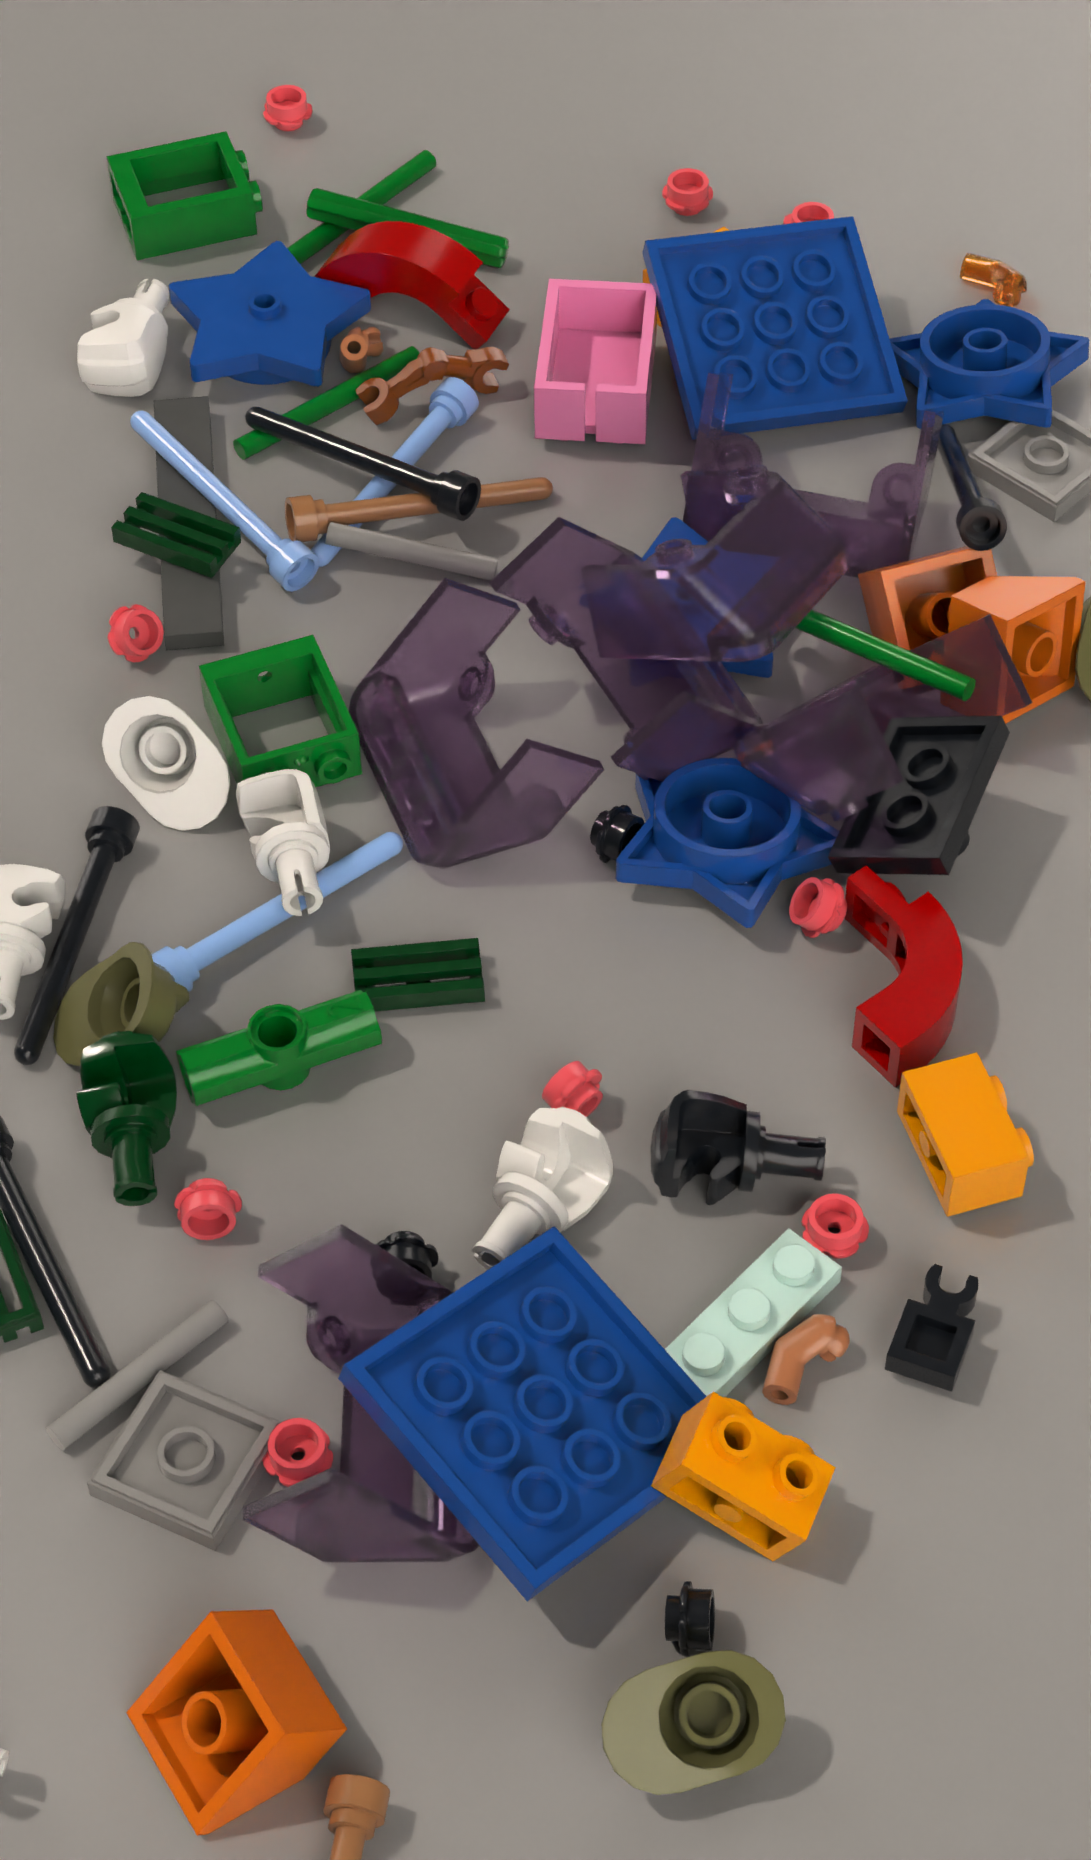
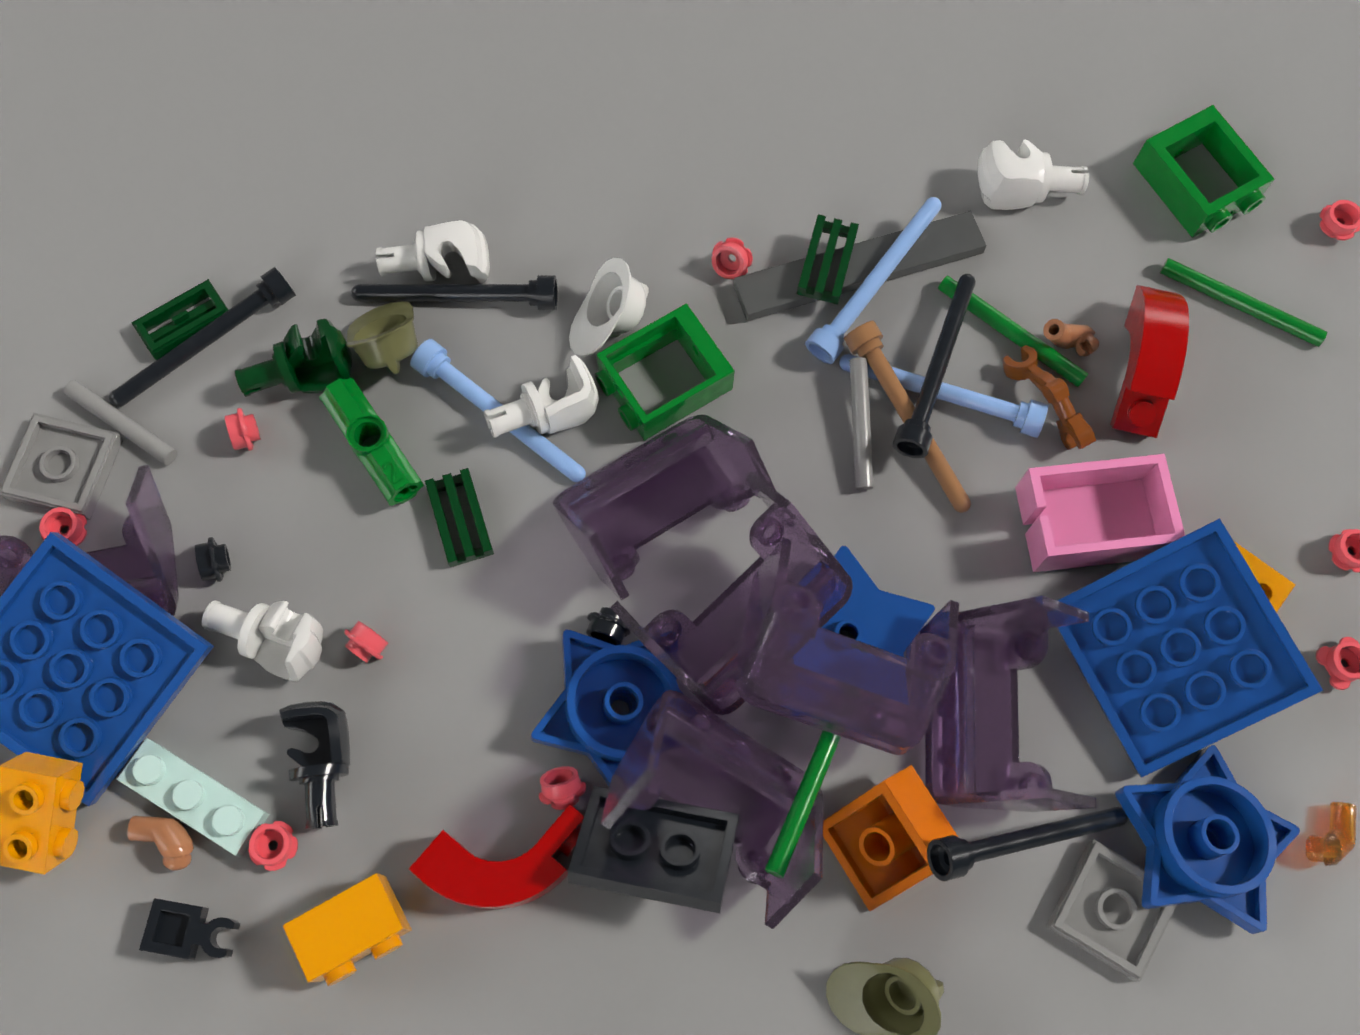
camera: 75 degrees right, 20 degrees up
(266, 320) = (1078, 263): blue plate -> none
(357, 213) = (1222, 341): green axle -> none
(1037, 623) = (851, 907): orange slope -> none

